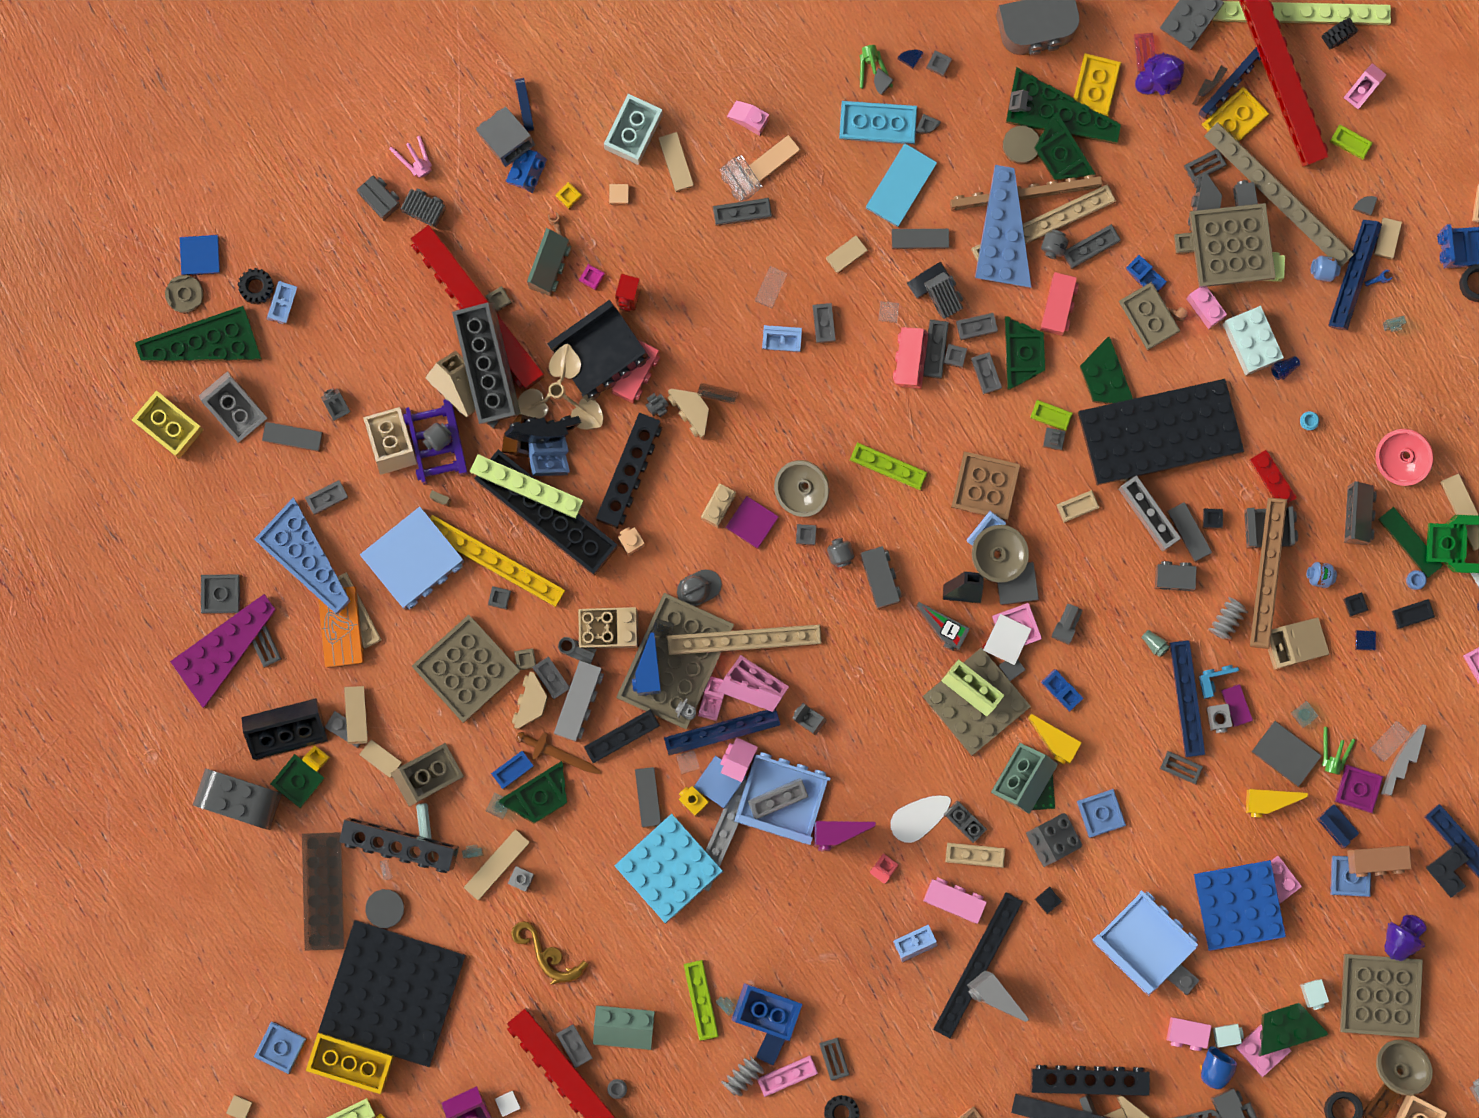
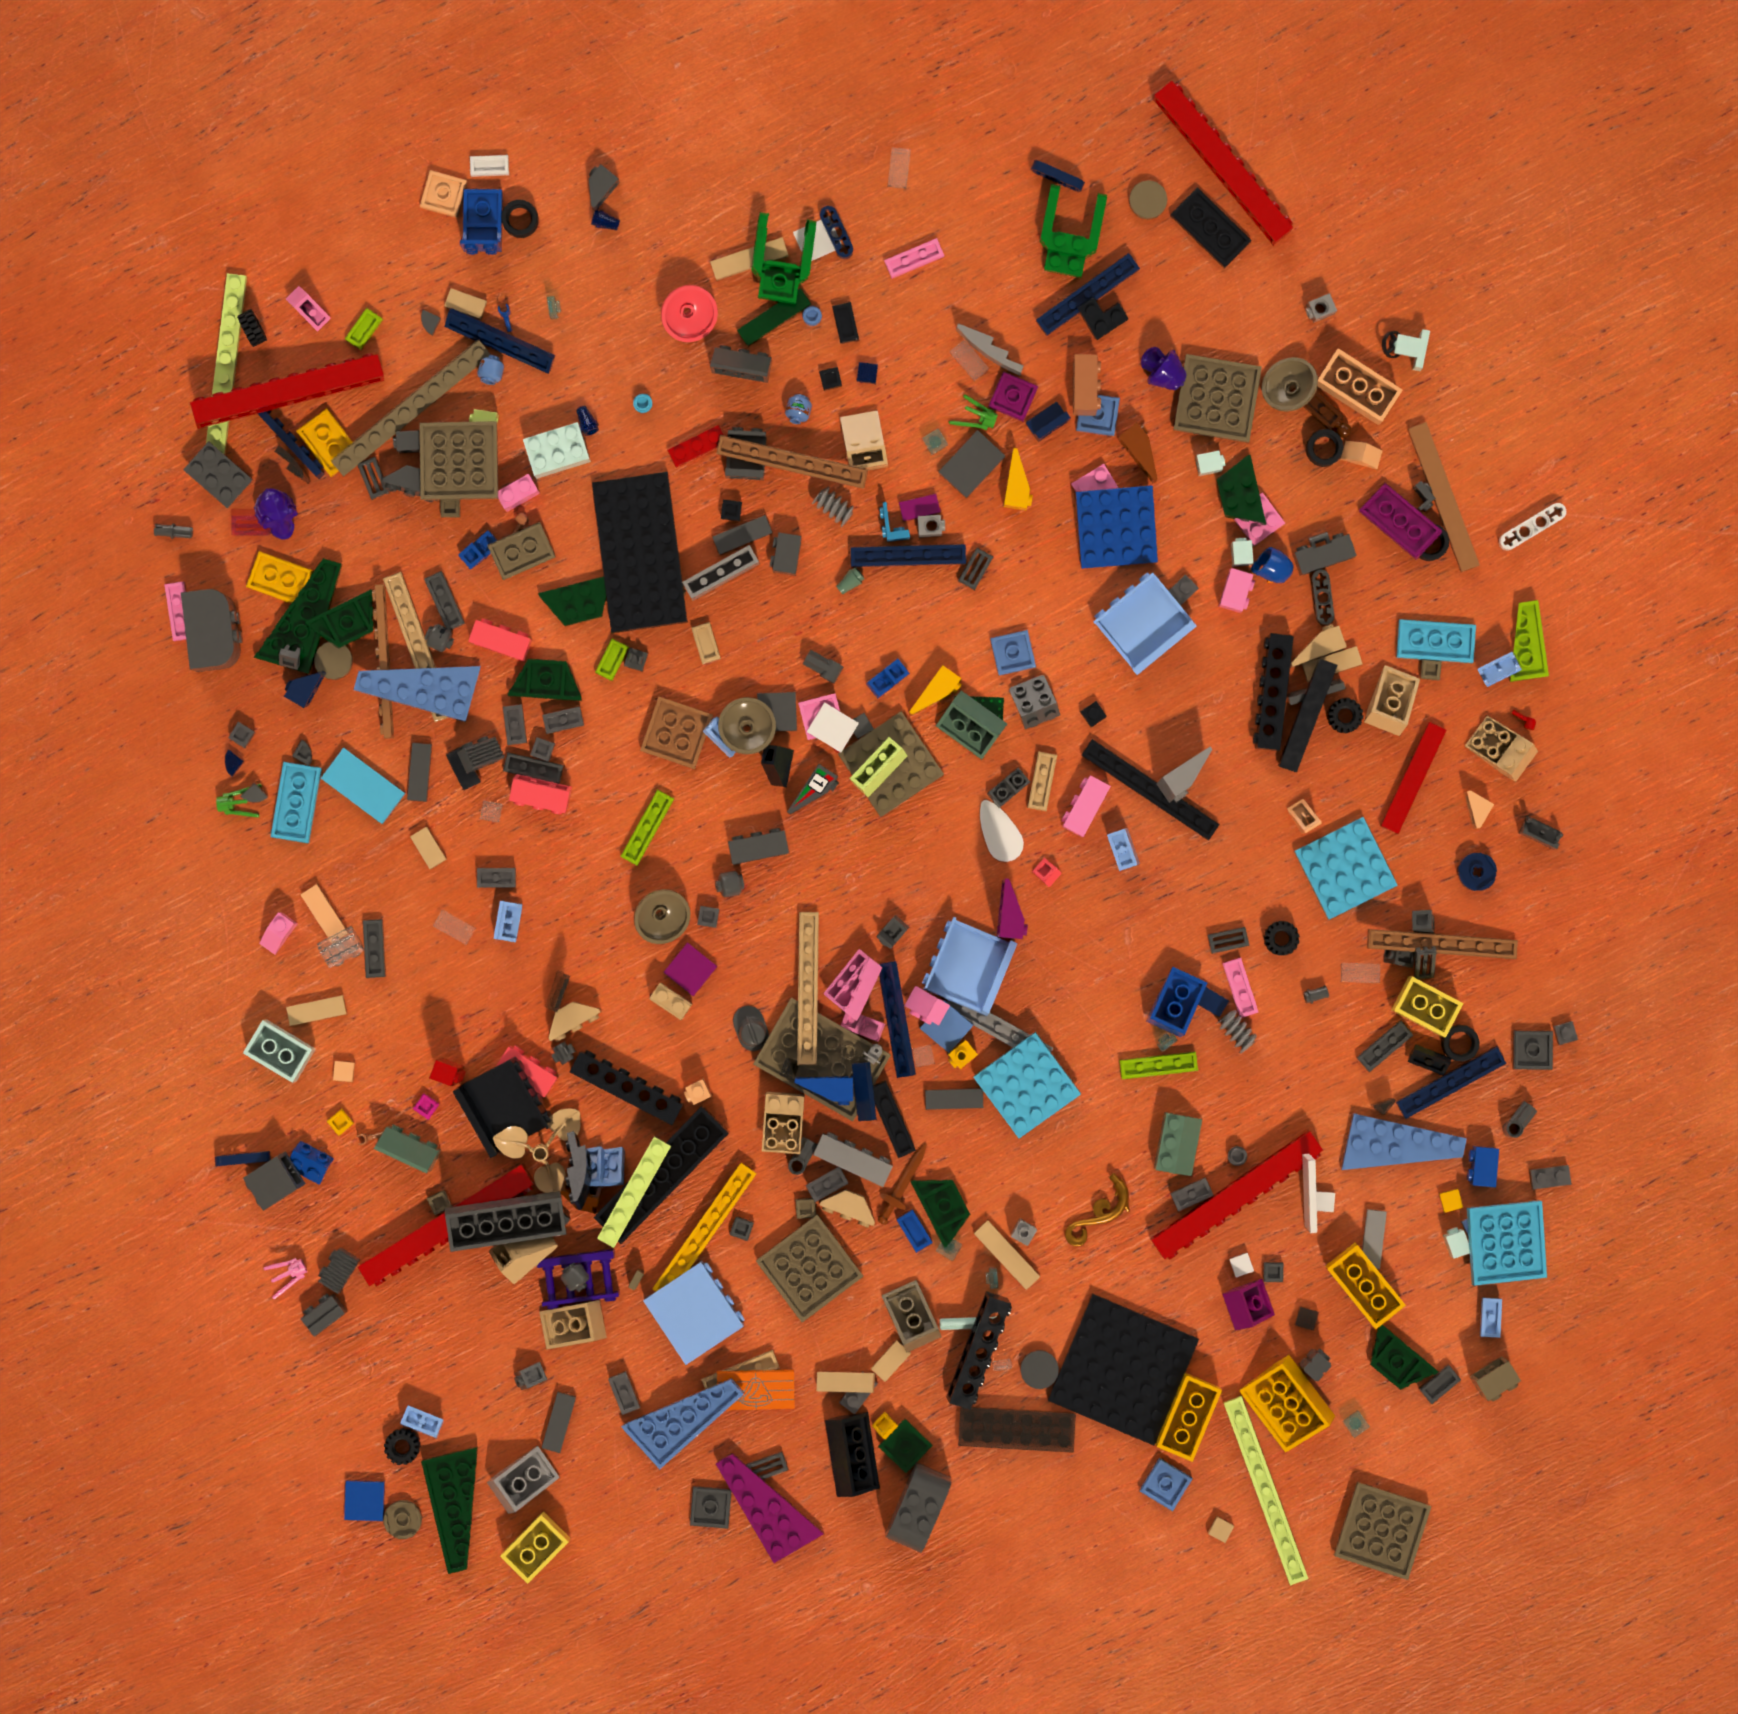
camera: 80 degrees left, 5 degrees up
(647, 705) = (864, 1091): none -> dark blue tile
(777, 798) = (969, 970): light grey tile -> none
(990, 118) = (304, 688): none -> dark blue slope
(1325, 918) = (1138, 446): none -> dark orange slope

